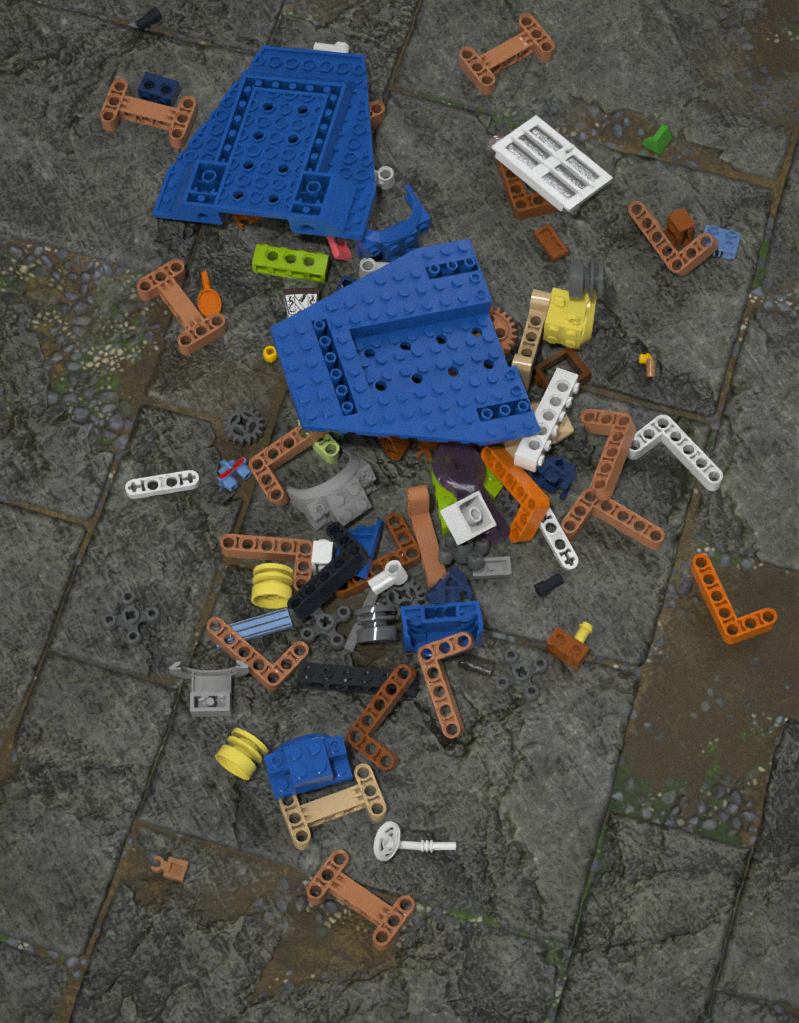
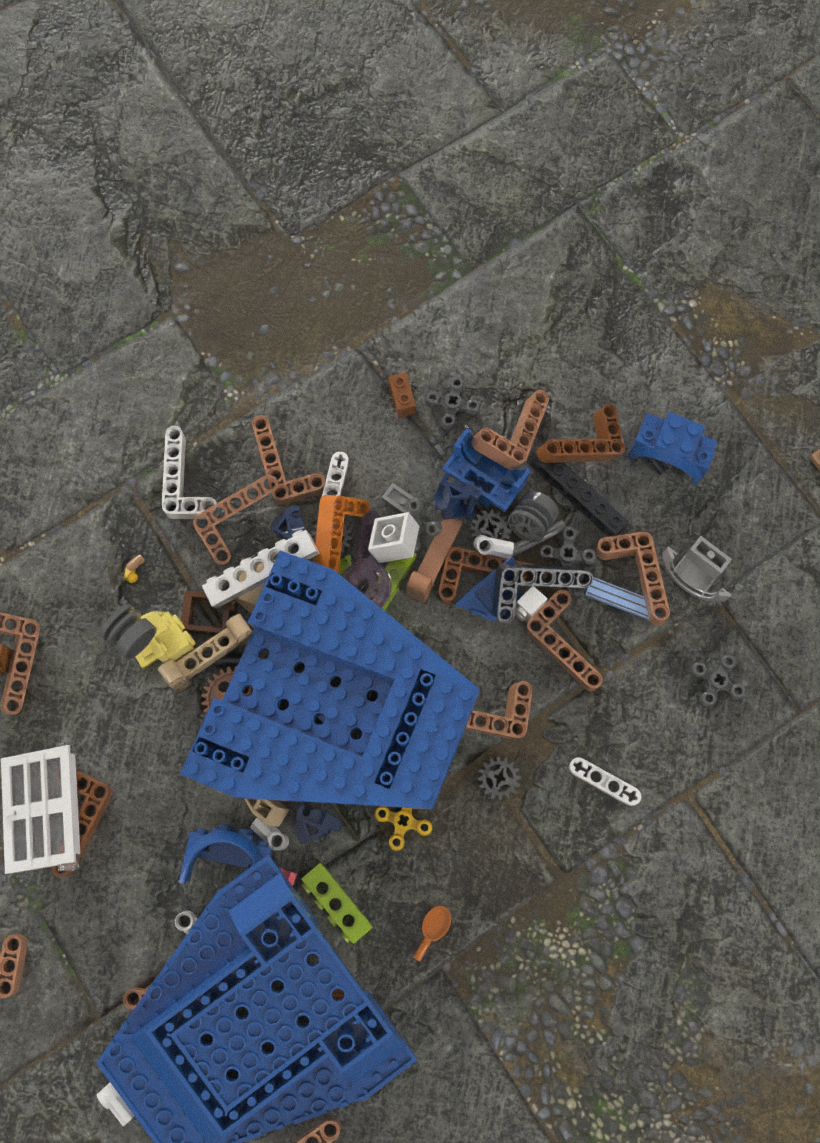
camera: 140 degrees left, 10 degrees up
(181, 306) = (464, 941): nougat beam -> none
(230, 471) = (531, 740): medium blue hips -> none
(241, 753) = (714, 499): light yellow wheel -> none
(272, 585) = (587, 613): light yellow wheel -> none
(299, 299) = (362, 851): torso -> none
(333, 806) = (661, 408): tan beam -> none
(338, 498) = (477, 637): light grey piece -> none
(360, 899) = (703, 336): nougat beam -> none
(394, 843) = (645, 355): white dish -> none
(544, 587) = (371, 455): black pin -> none
(550, 243) = (107, 739): dark orange plate -> none
(583, 631) = (379, 400): light yellow pin -> none
(724, 606) = (260, 339): orange beam -> none

